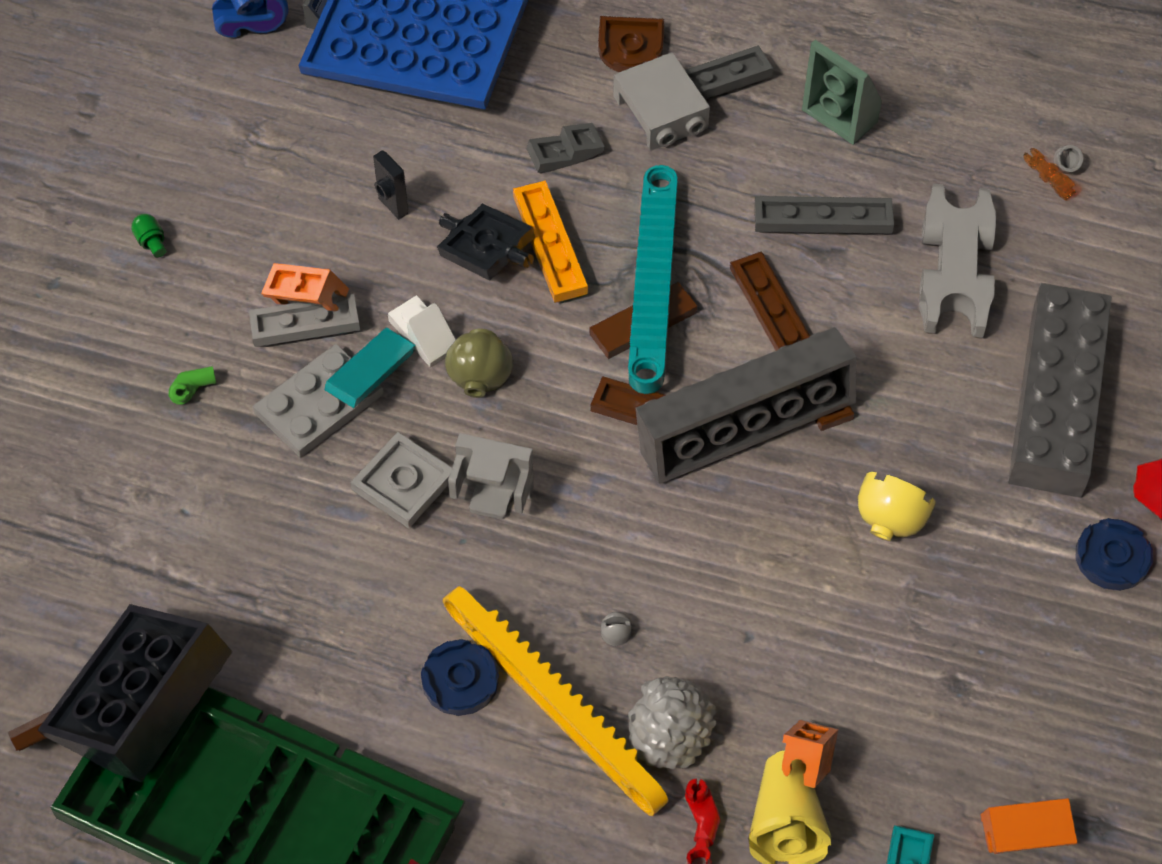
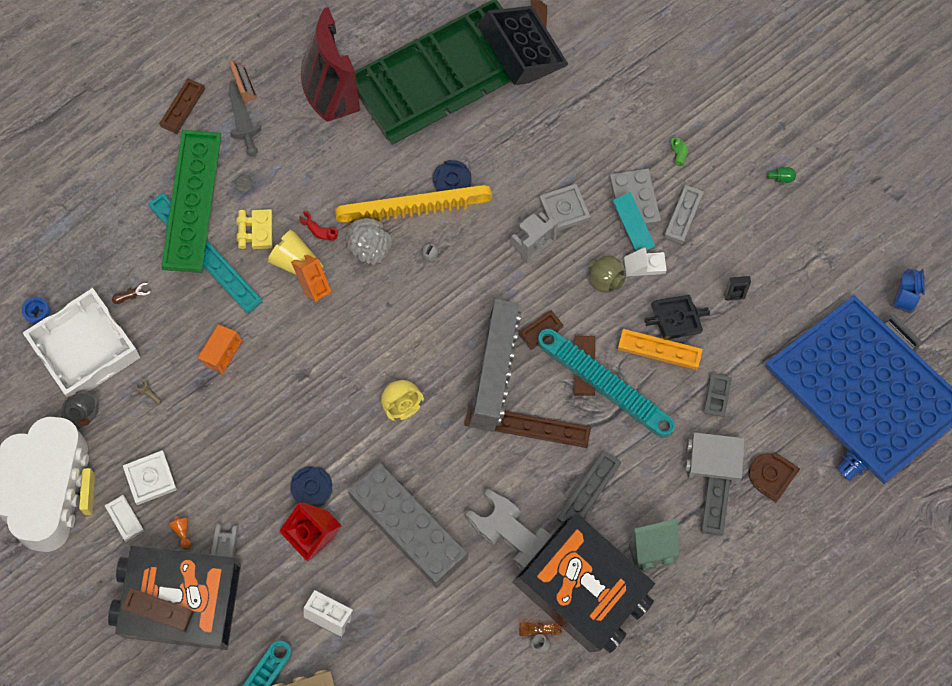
camera: 125 degrees right, 10 degrees up
(303, 285) = (698, 217): orange hinge -> none
(965, 132) = (586, 585): none -> black brick

